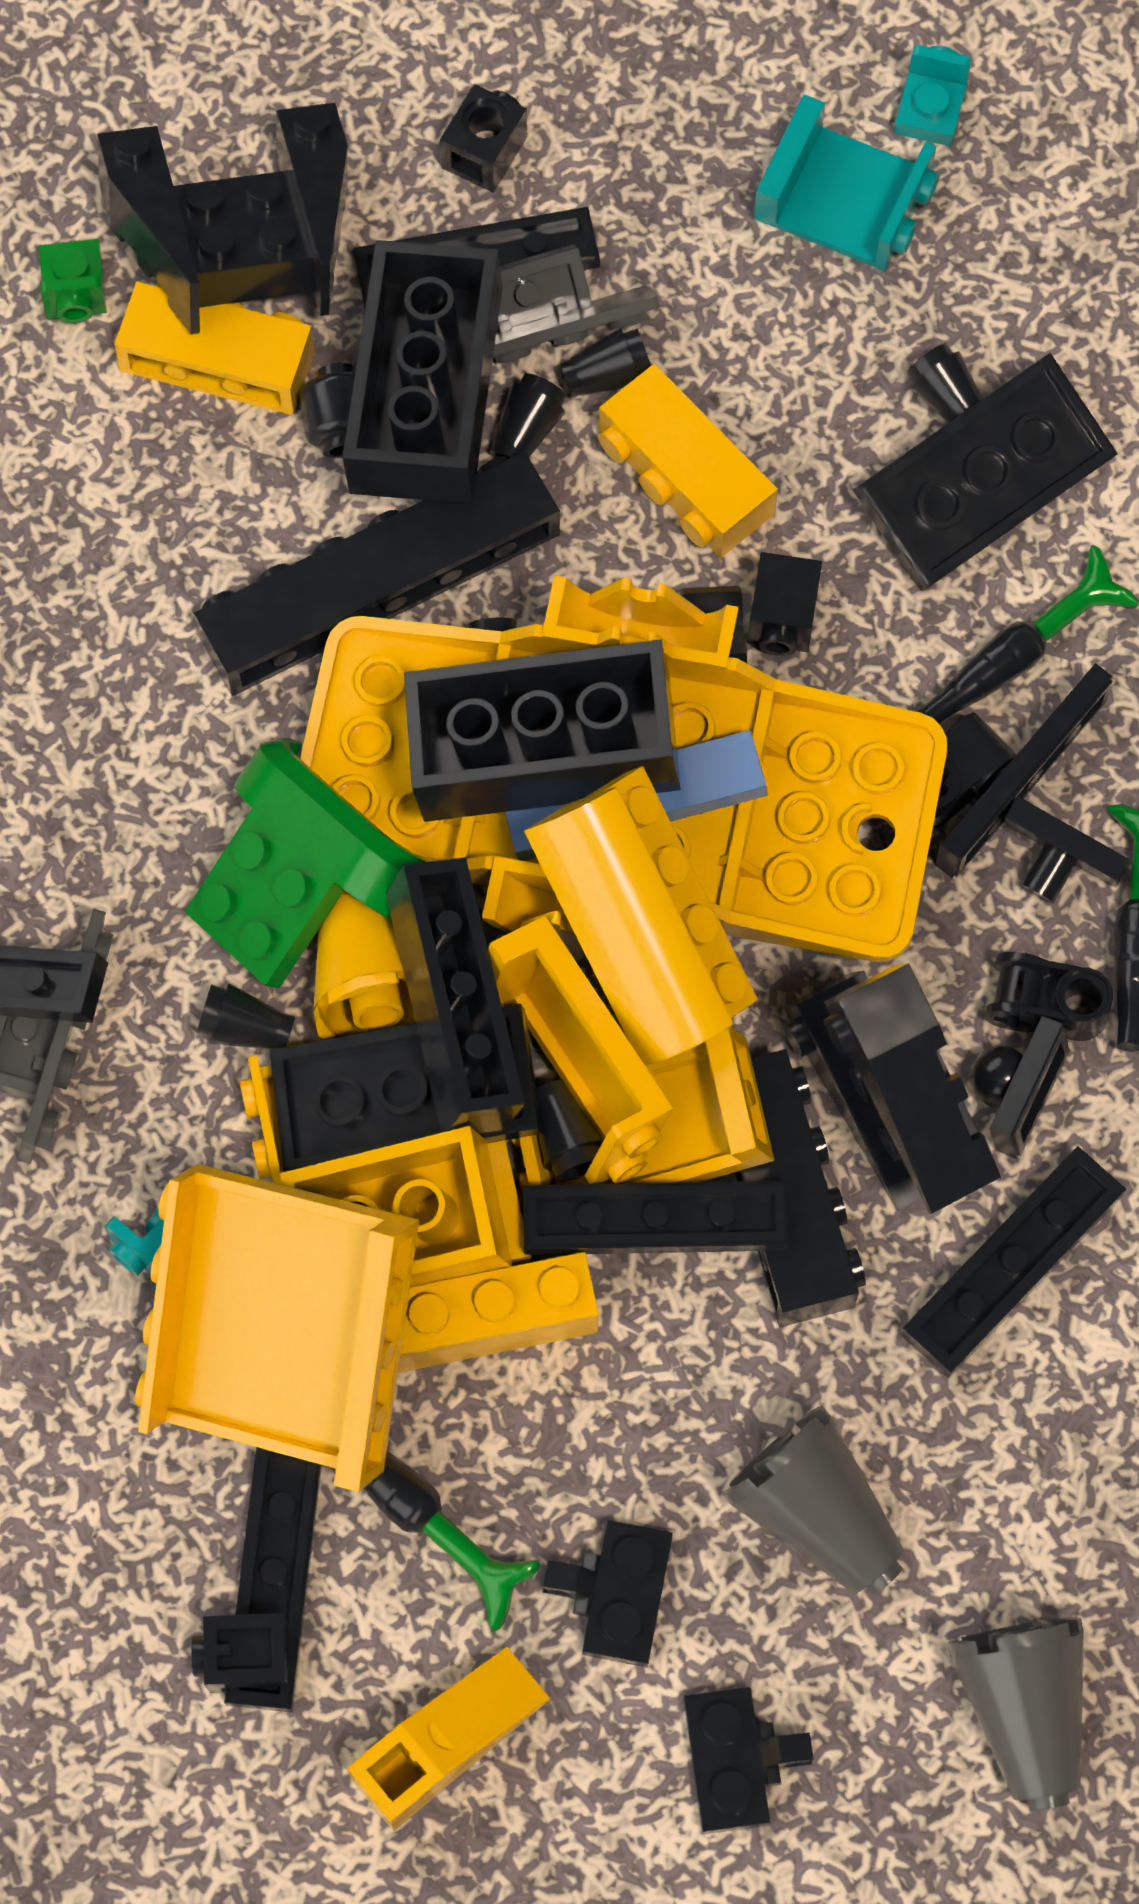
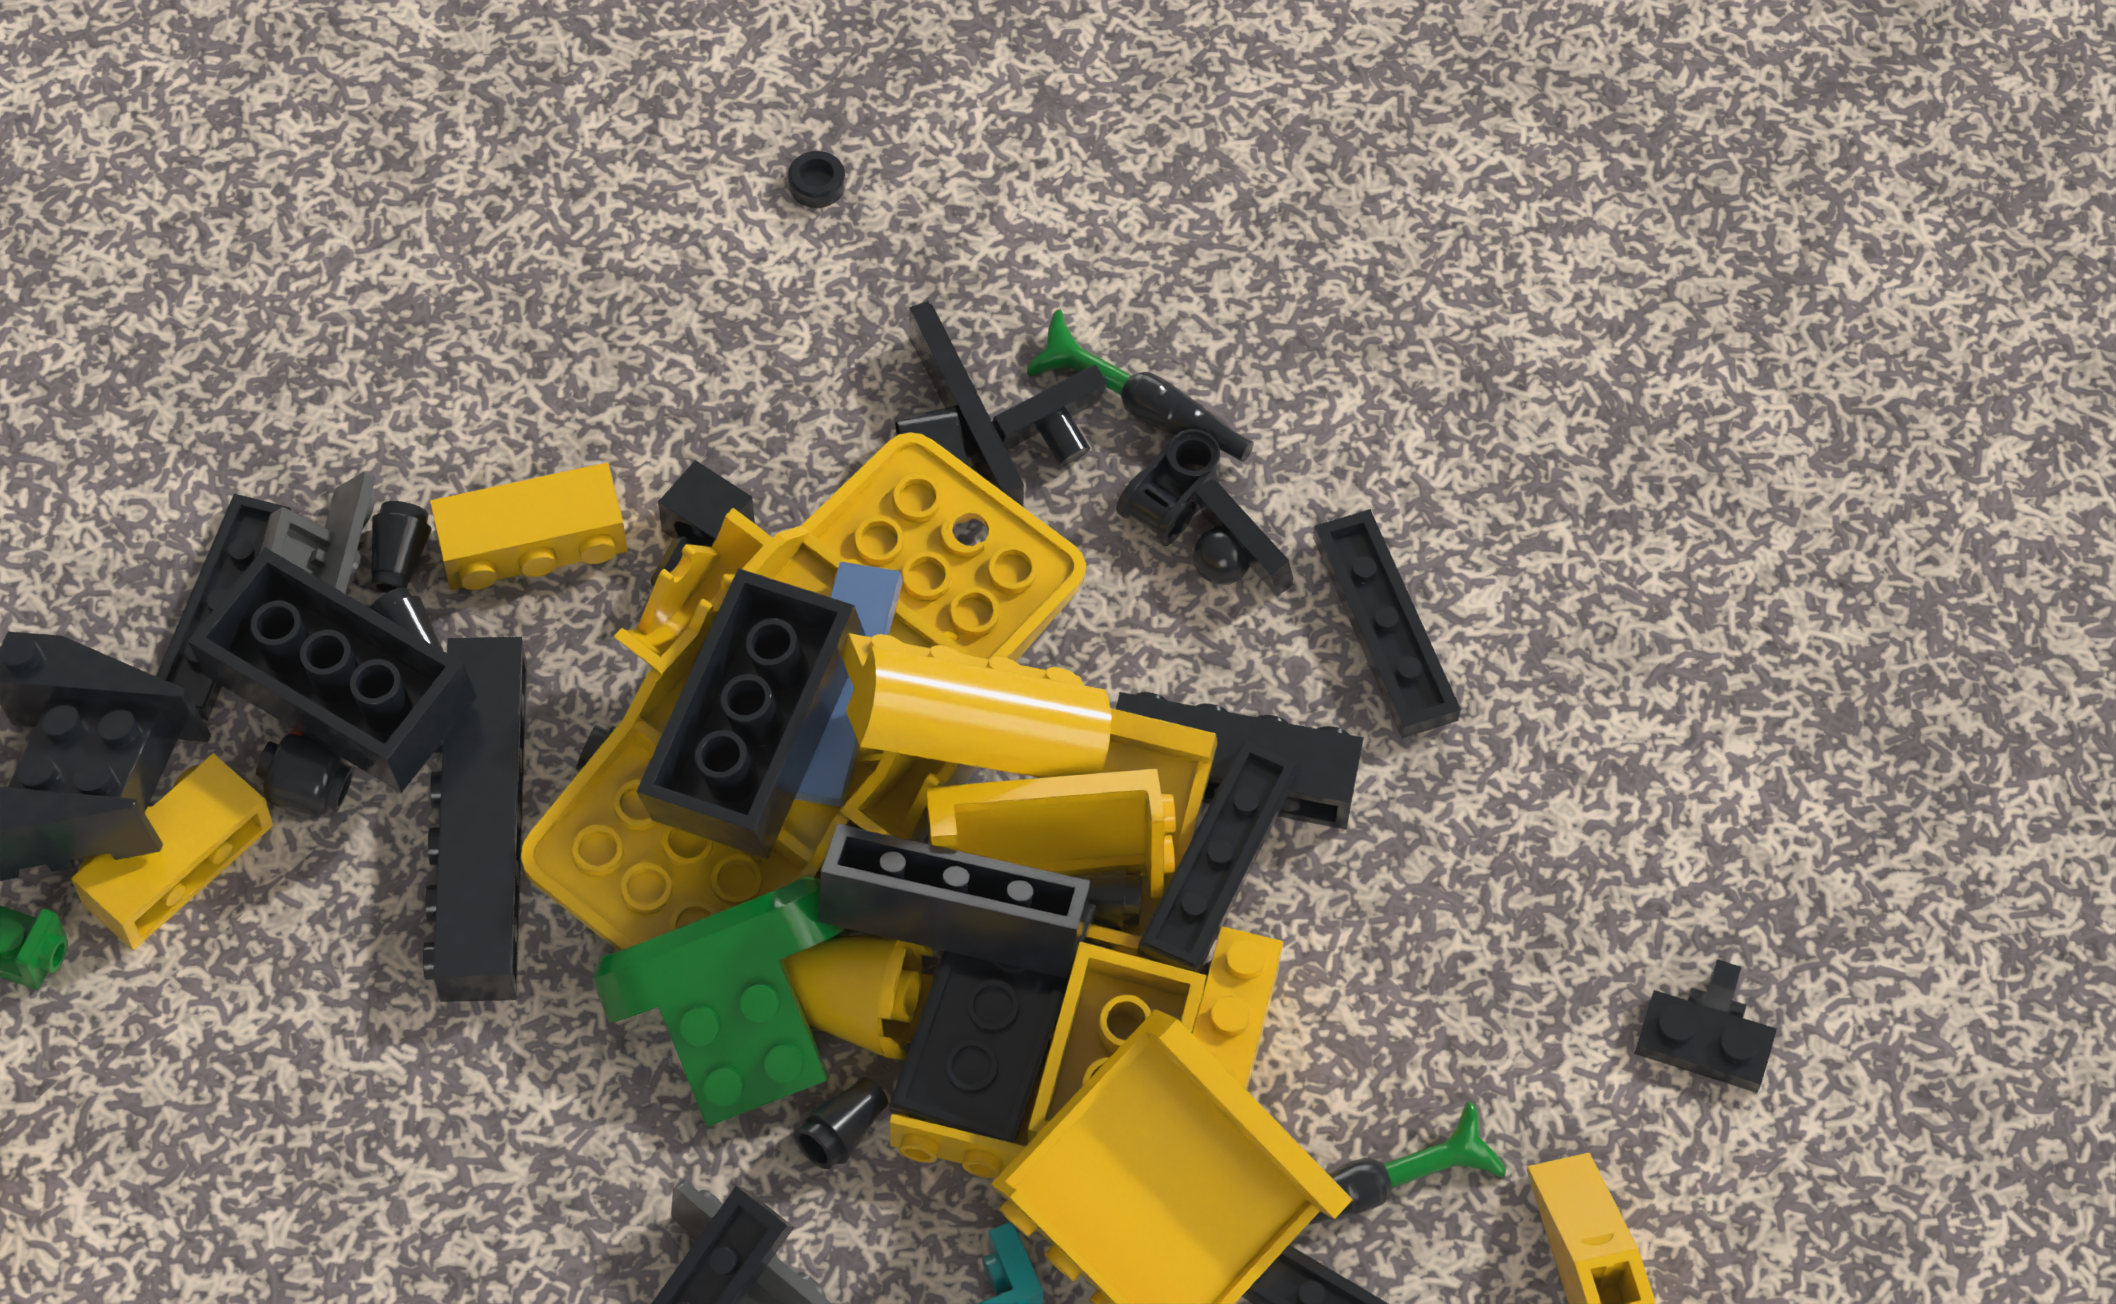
camera: 65 degrees left, 10 degrees down
(484, 159) = (120, 560): black brick -> none
(617, 1591) = (1519, 1057): black hinge -> none
(820, 1505) = (1522, 857): dark grey cone -> none
(843, 190) = (353, 294): teal panel -> none
(883, 1069) = (1208, 613): black wedge -> none
(933, 94) = (307, 189): teal bracket -> none
(944, 382) = (588, 304): black cone -> none
(985, 472) = (681, 313): black tile -> none
(1024, 643) = (849, 361): black piece -> none
(1029, 1704) = (1768, 780): dark grey cone -> none

